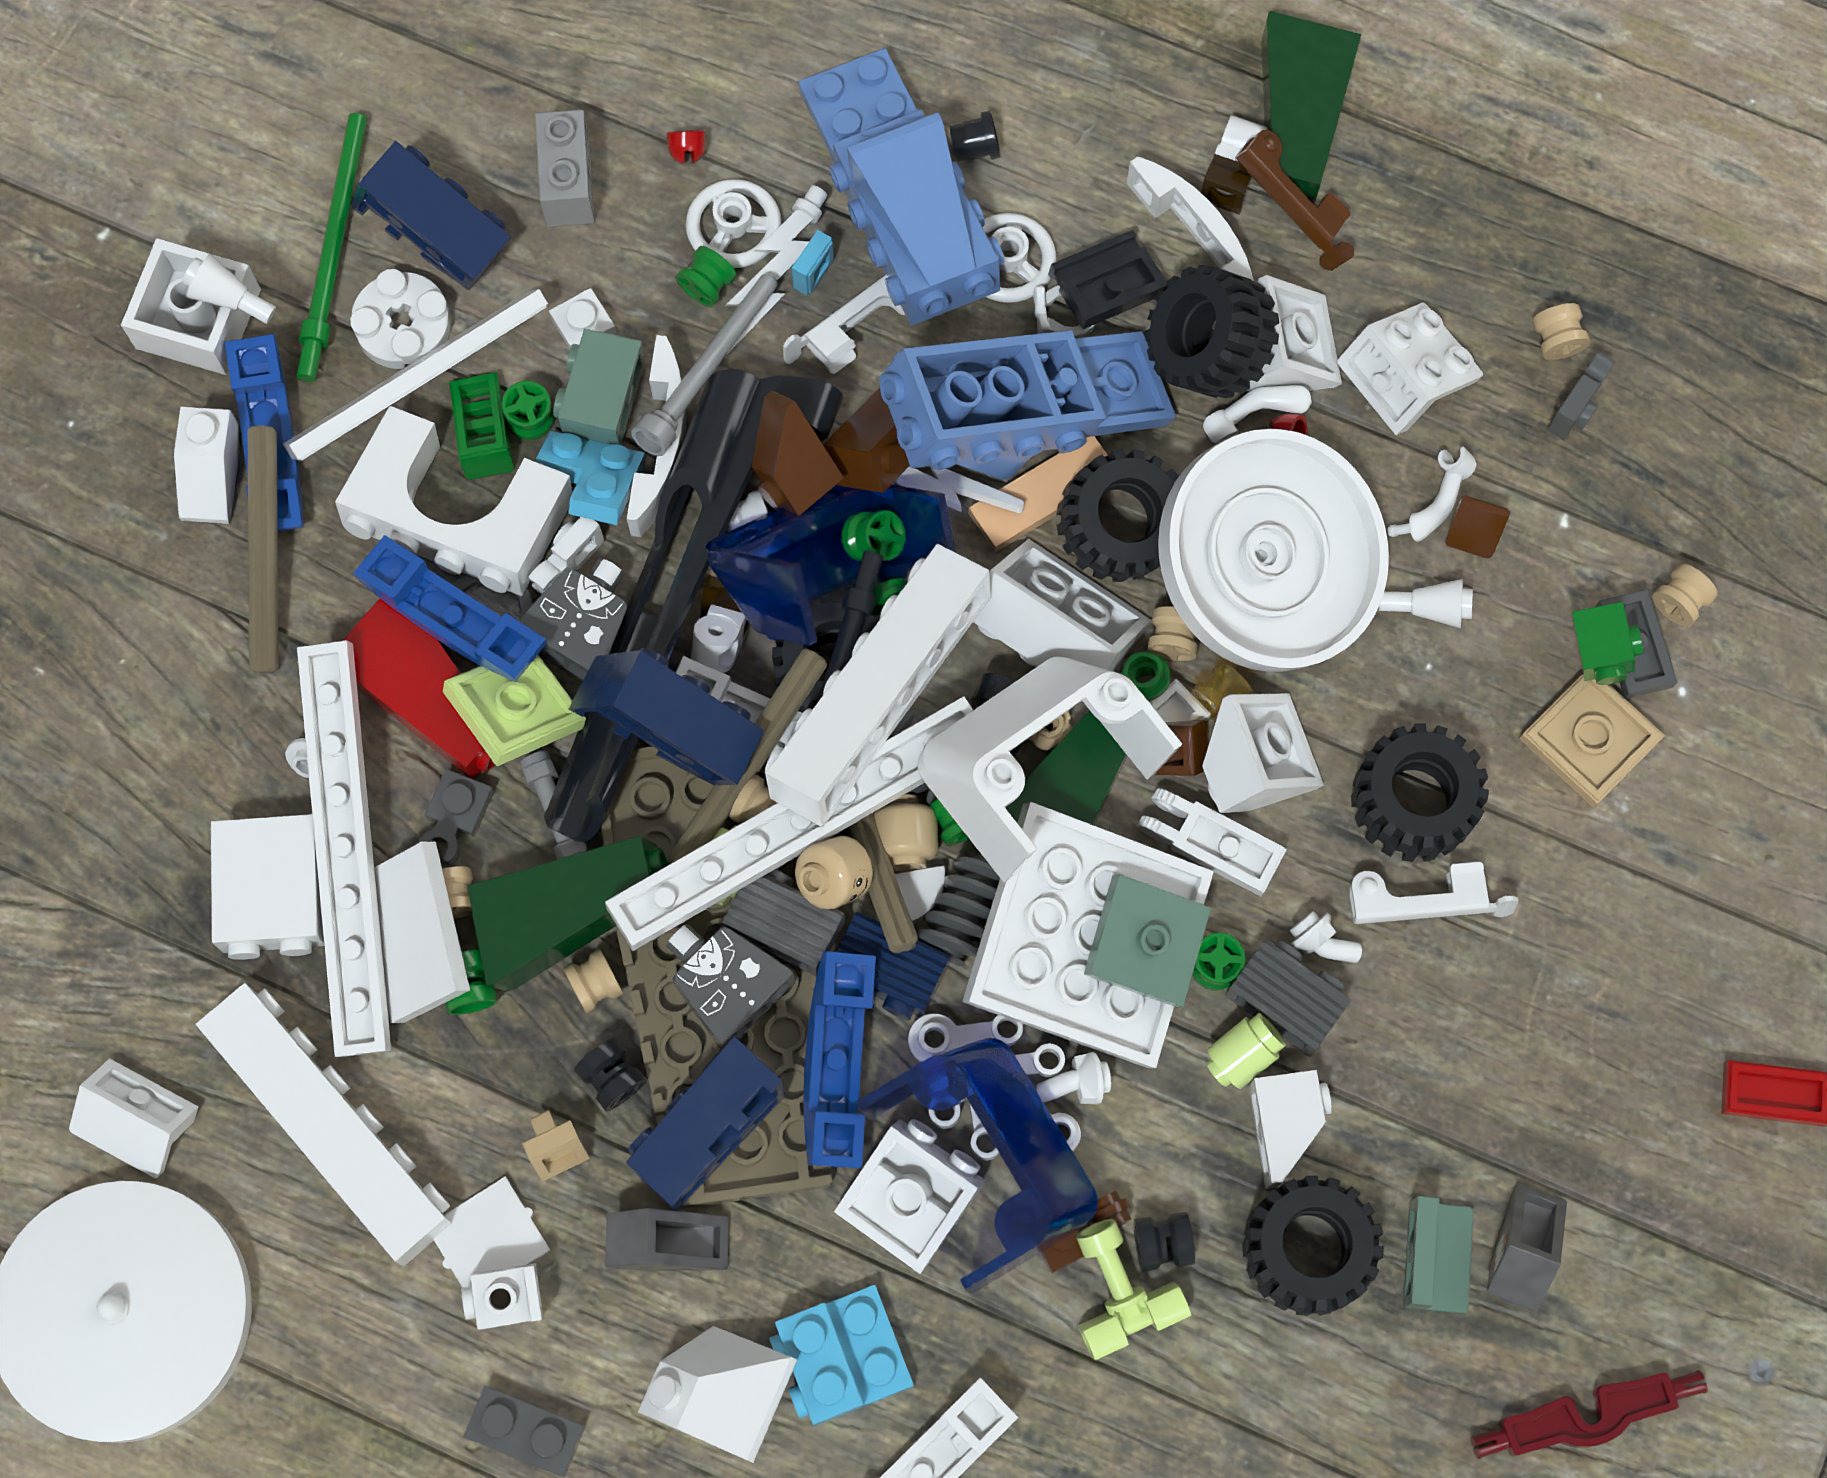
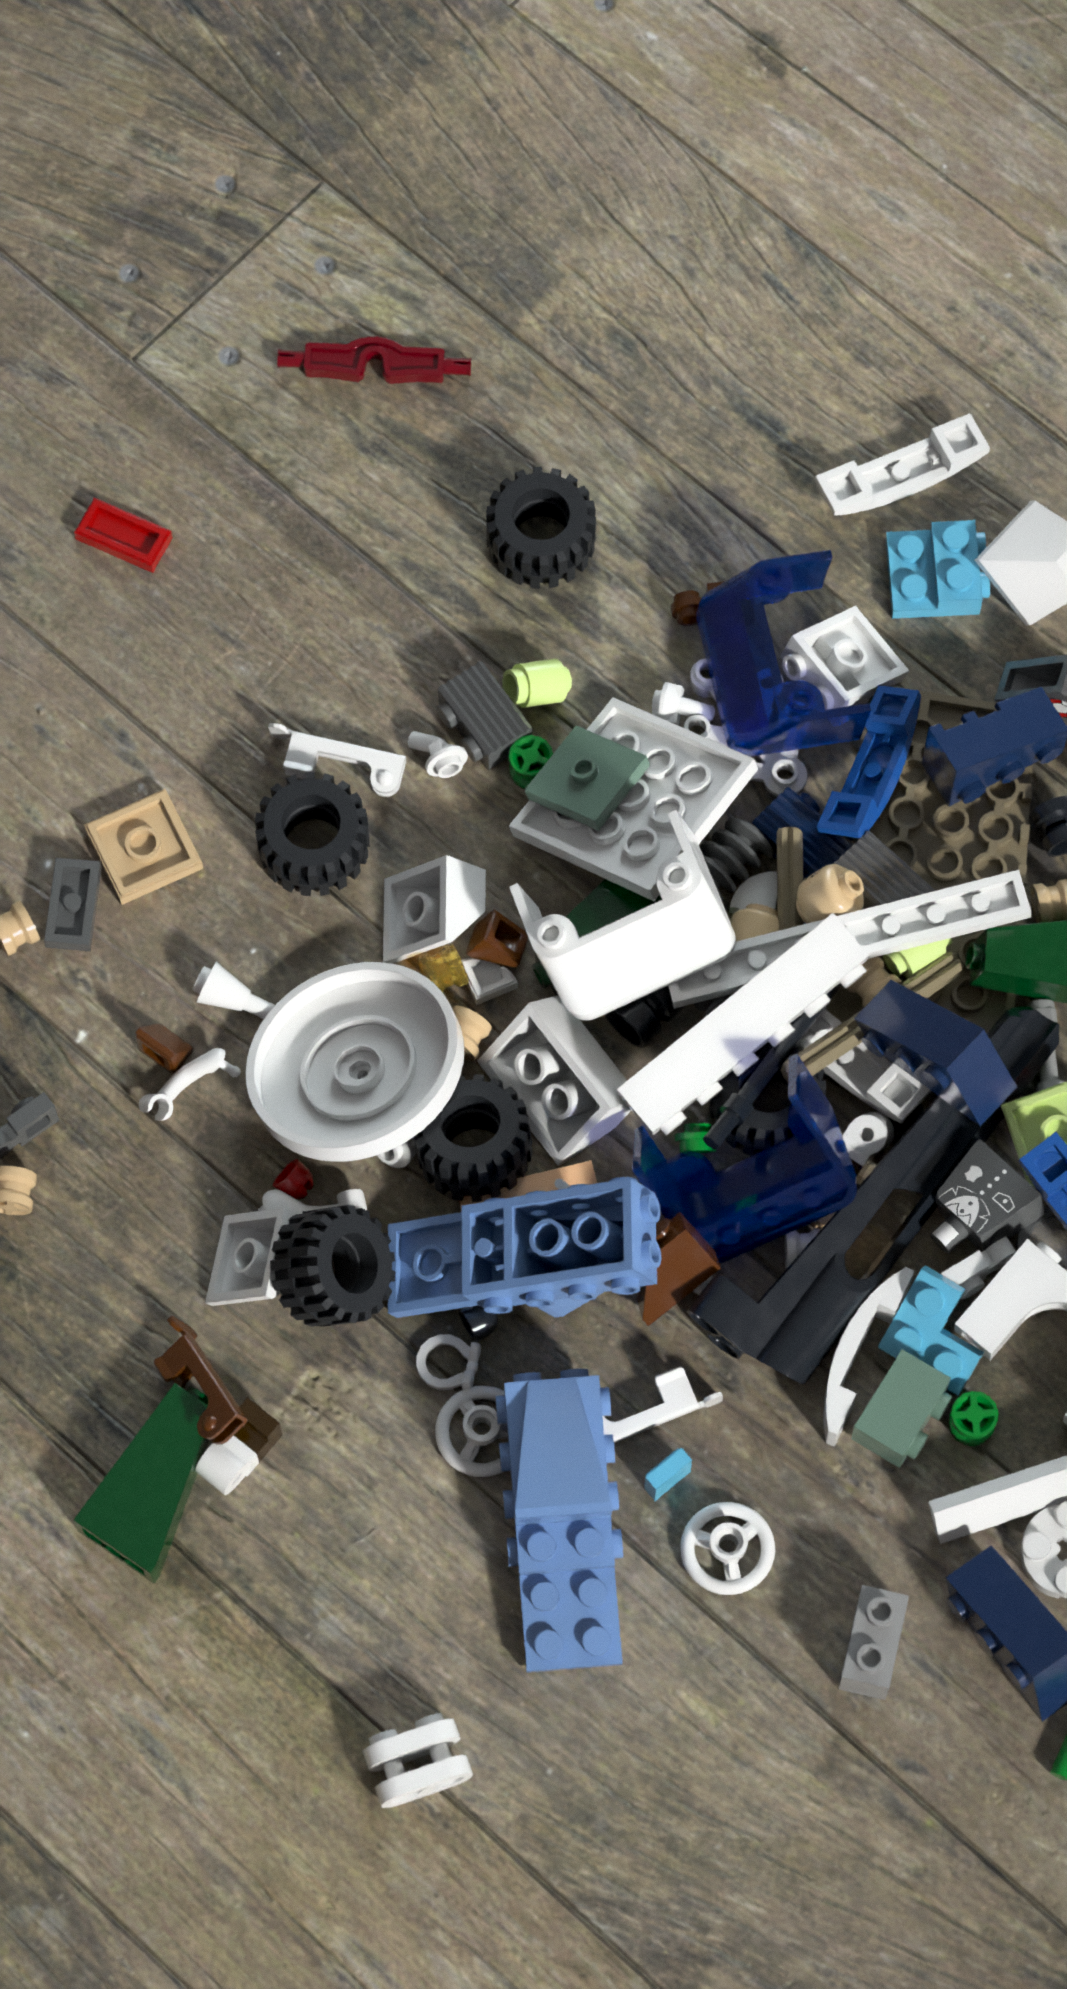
camera: 160 degrees left, 5 degrees down
(486, 454) = (1022, 1386): green slope -> none
(580, 313) = (898, 1495): white plate -> none
(657, 430) = (862, 1333): light grey piece -> none
(686, 141) = (746, 1650): red hinge -> none
(705, 276) = (771, 1493): green wheel -> none
(727, 981) = (942, 845): dark grey torso -> none
(790, 457) = (754, 1253): reddish brown slope -> none
(805, 211) = (687, 1501): white piece -> none
(881, 525) = (699, 1187): green wheel -> none
(975, 138) = (471, 1551): black piece -> none
(1107, 279) = (400, 1369): black plate -> none
(1128, 1307) = (700, 537): yellowish green bar -> none
(1152, 664) = (503, 994): green plate -> none
(1152, 1245) = (654, 570): black wheel -> none
(1164, 190) = (317, 1436): white slope -> none
(1215, 842) = (493, 849): white hinge -> none
(1286, 1119) = (521, 624): white slope -> none
(1407, 365) = (157, 1204): white bracket -> none
(1438, 1256) = (443, 500): sand green panel -> none
(1528, 1248) = (371, 481): flat silver slope -> none
(1606, 643) = (105, 896): green brick -> none

